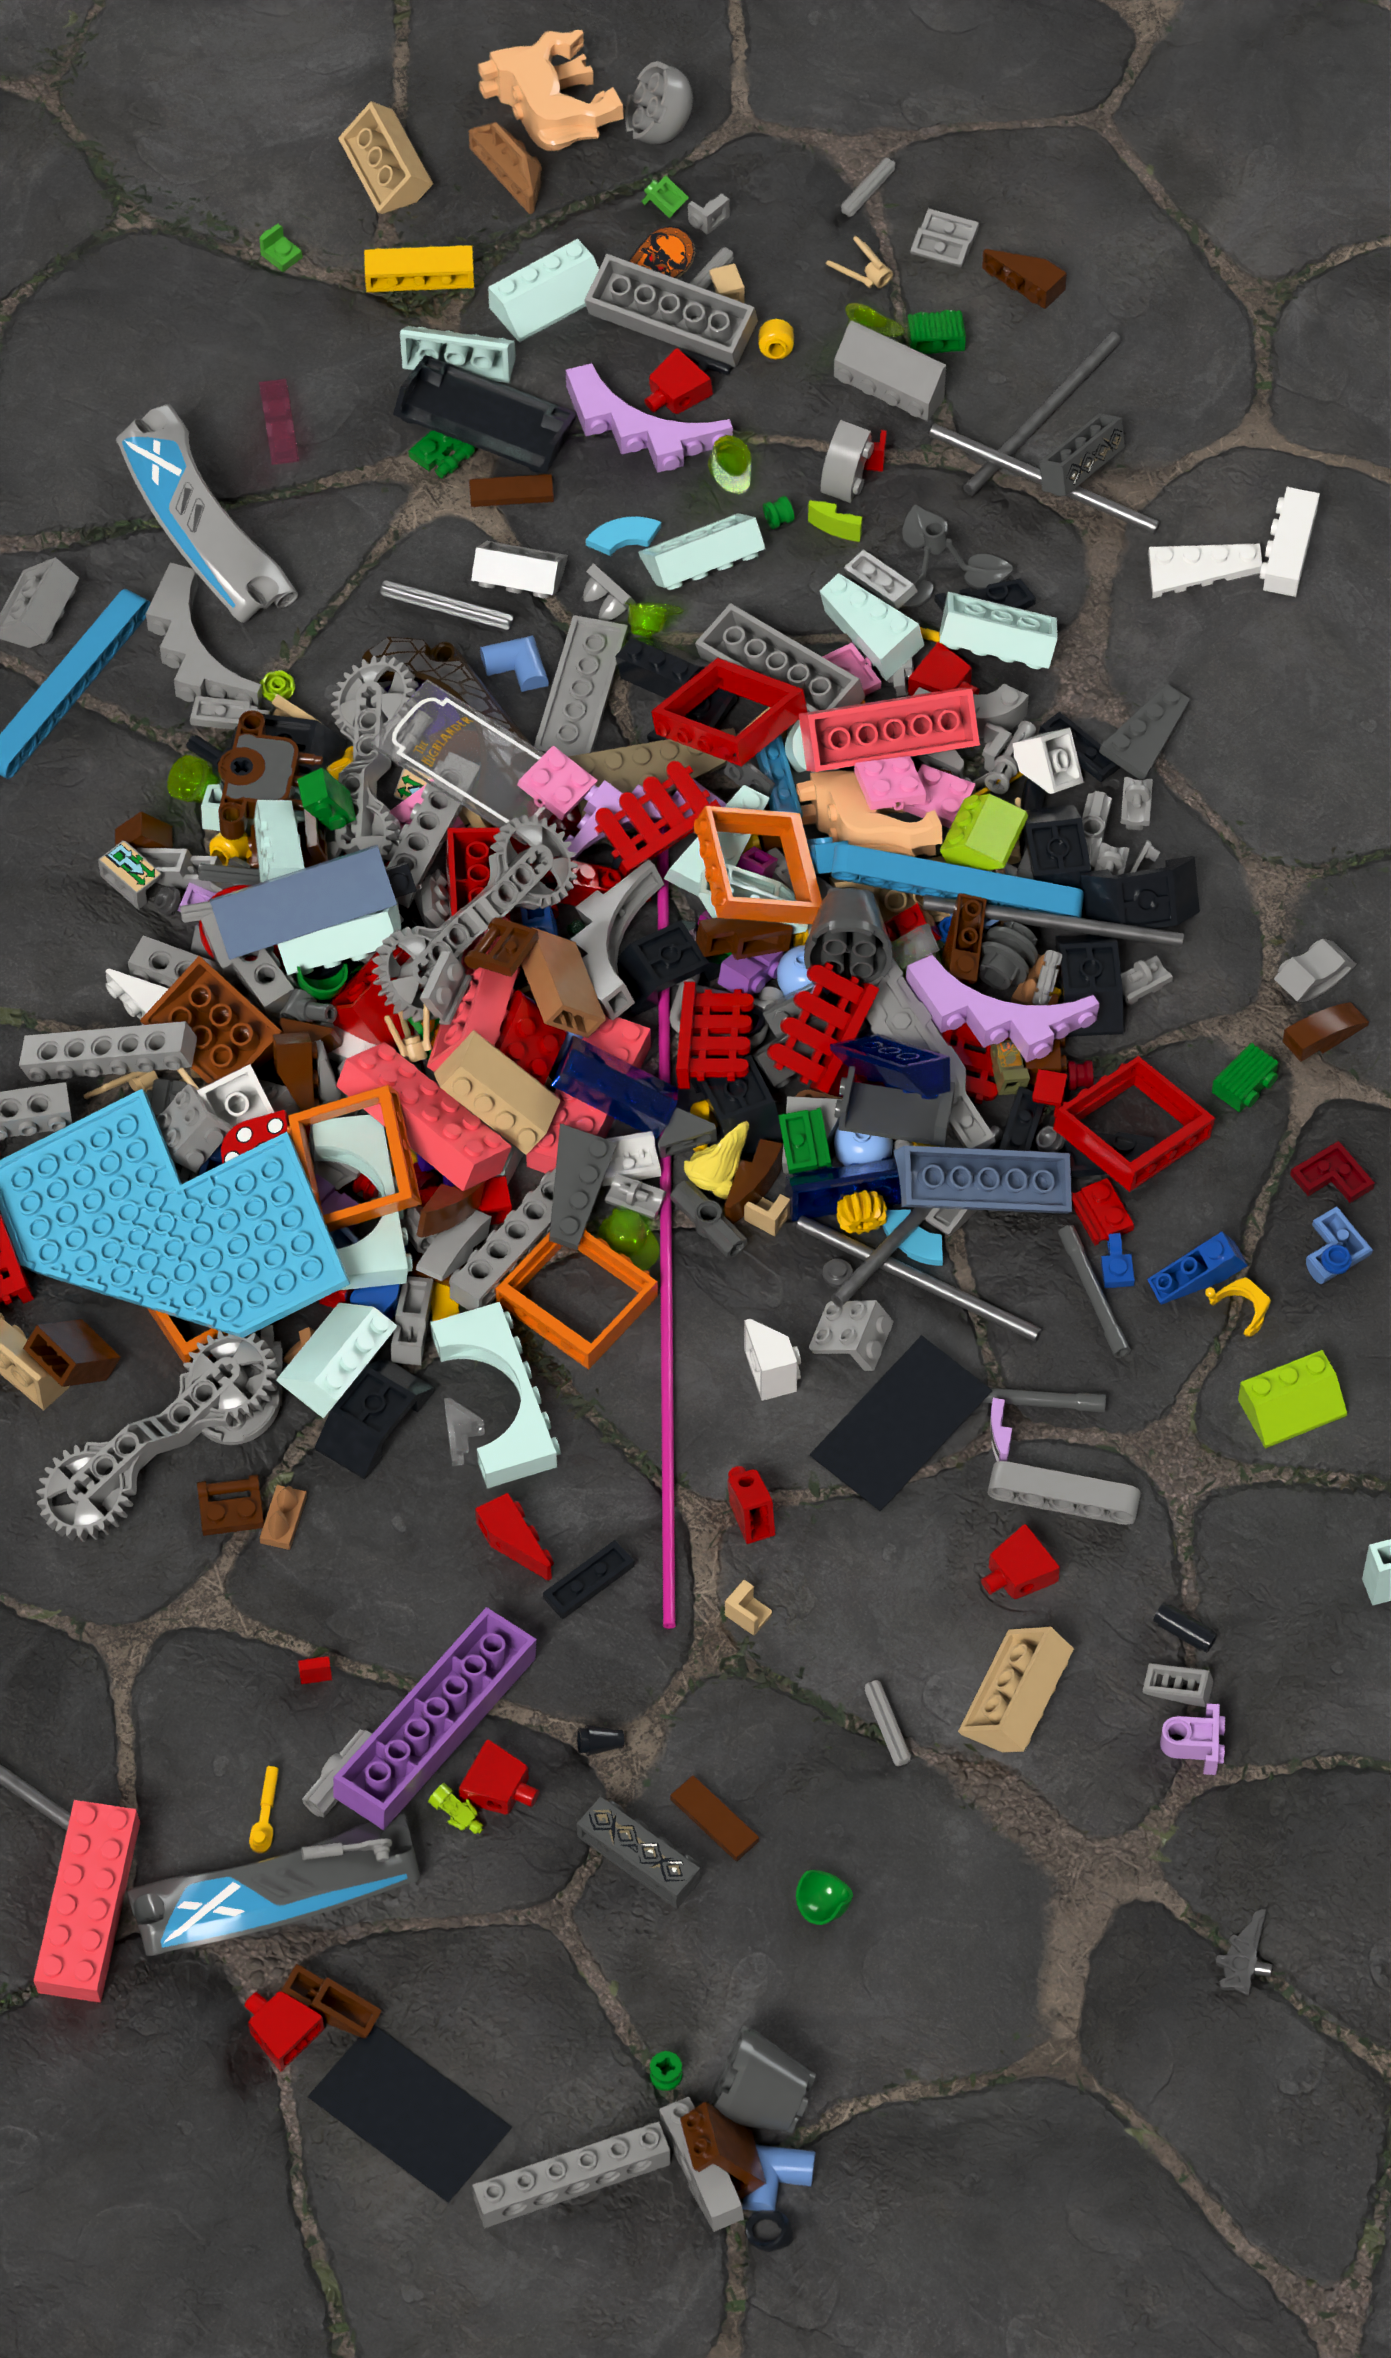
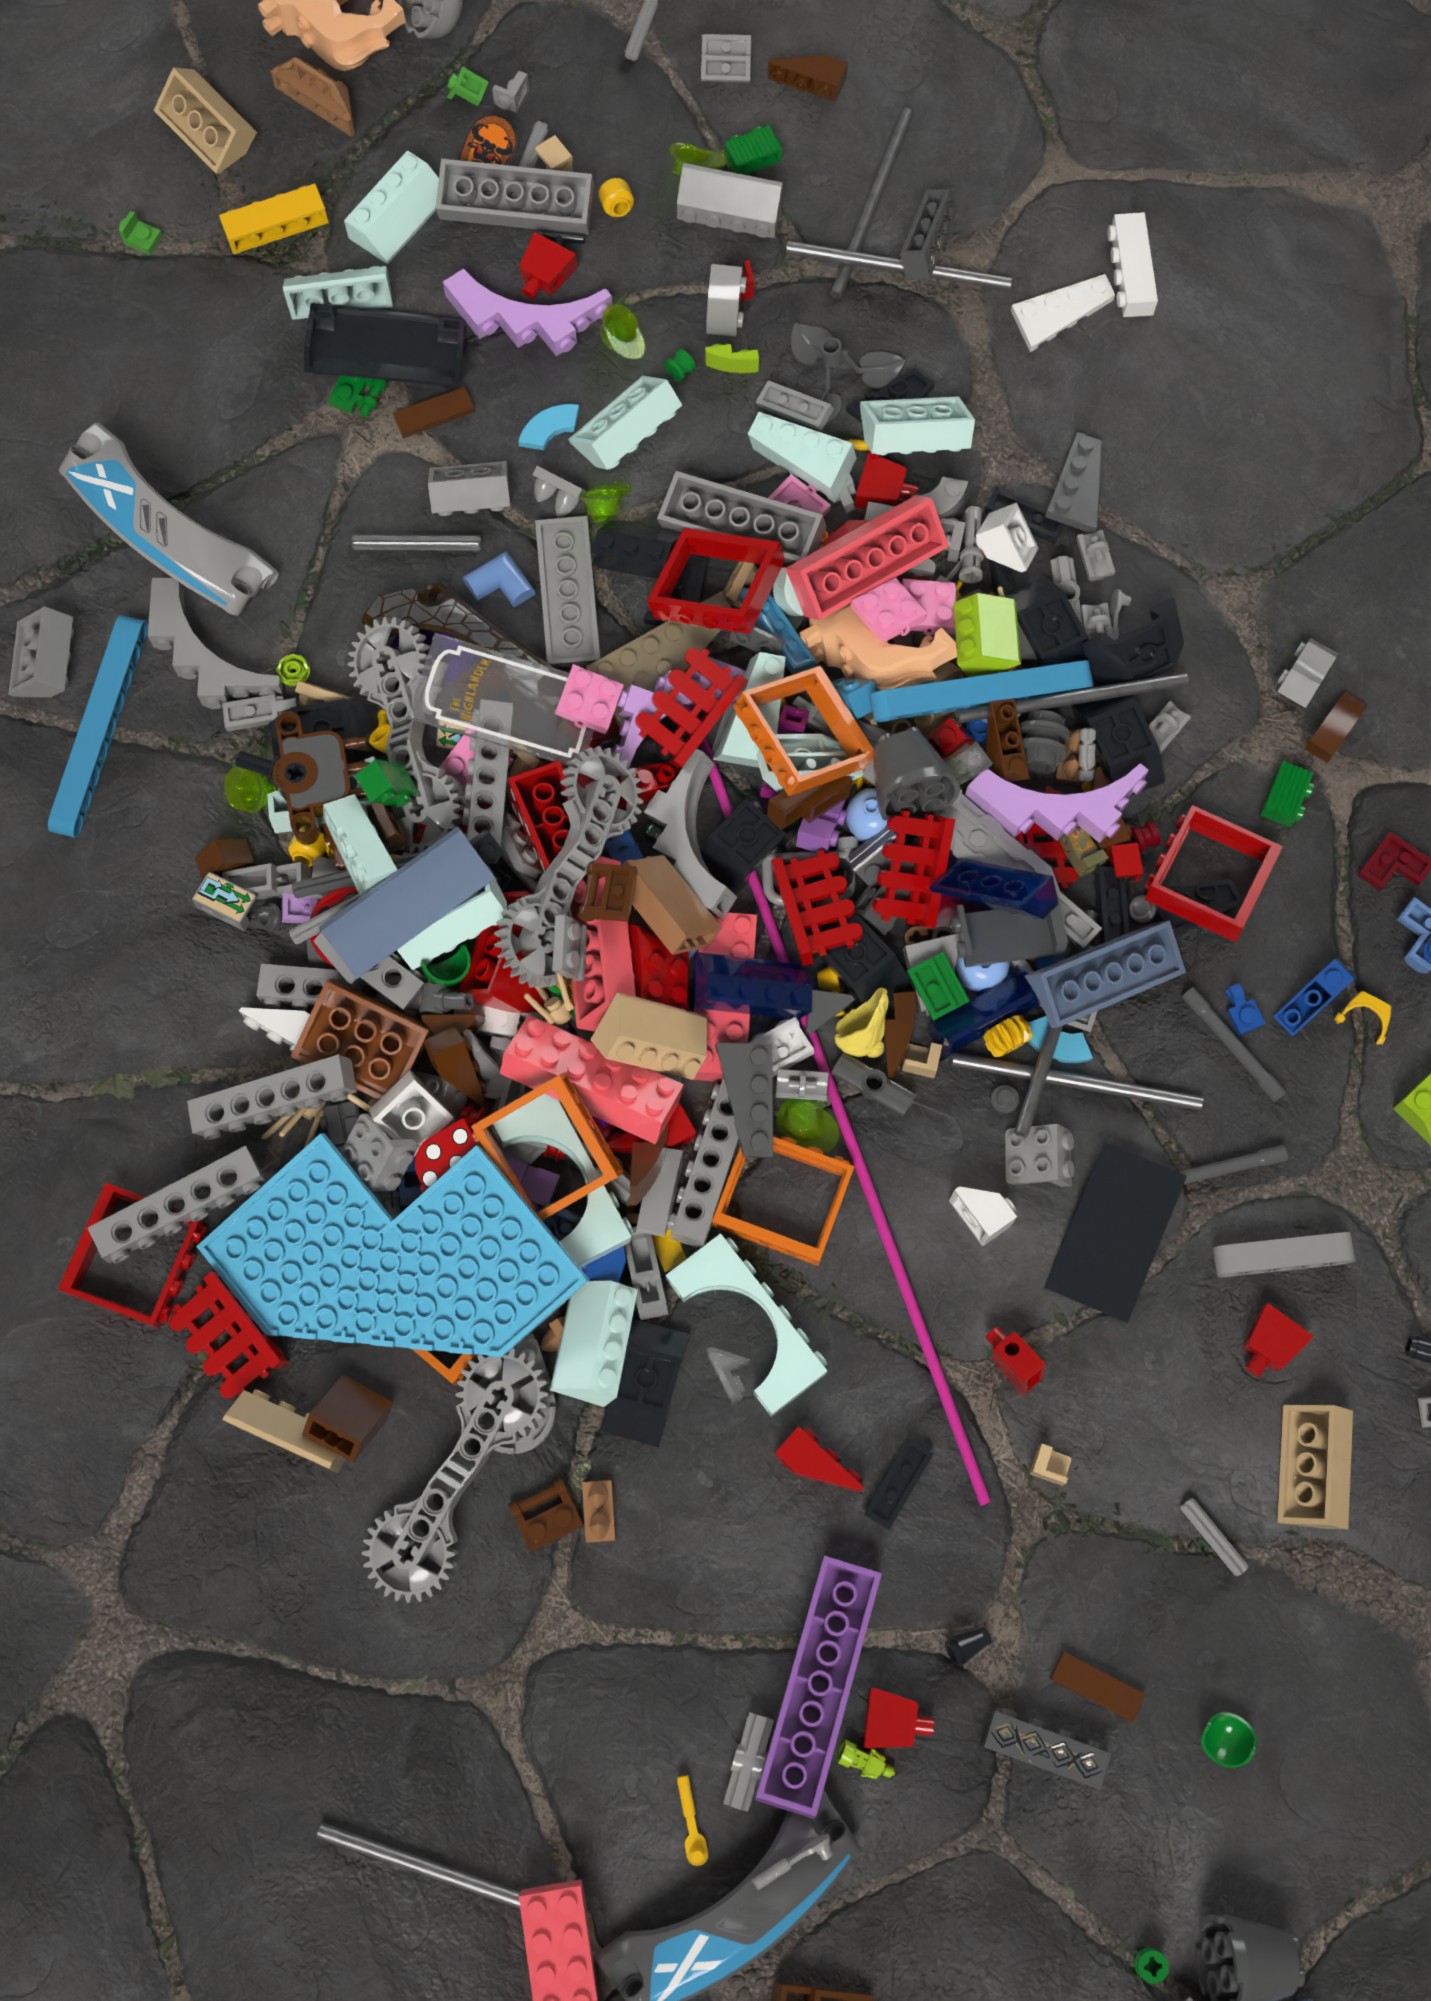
camera: 20 degrees left, 15 degrees up
(278, 421) = (200, 406): clear pink slope -> none
(315, 1670) = (685, 1663): red tile -> none
(877, 272) = (680, 107): tan plant -> none
(999, 1435) = (1209, 1221): lavender slope -> none
(1101, 1211) = (1210, 963): red plate -> none

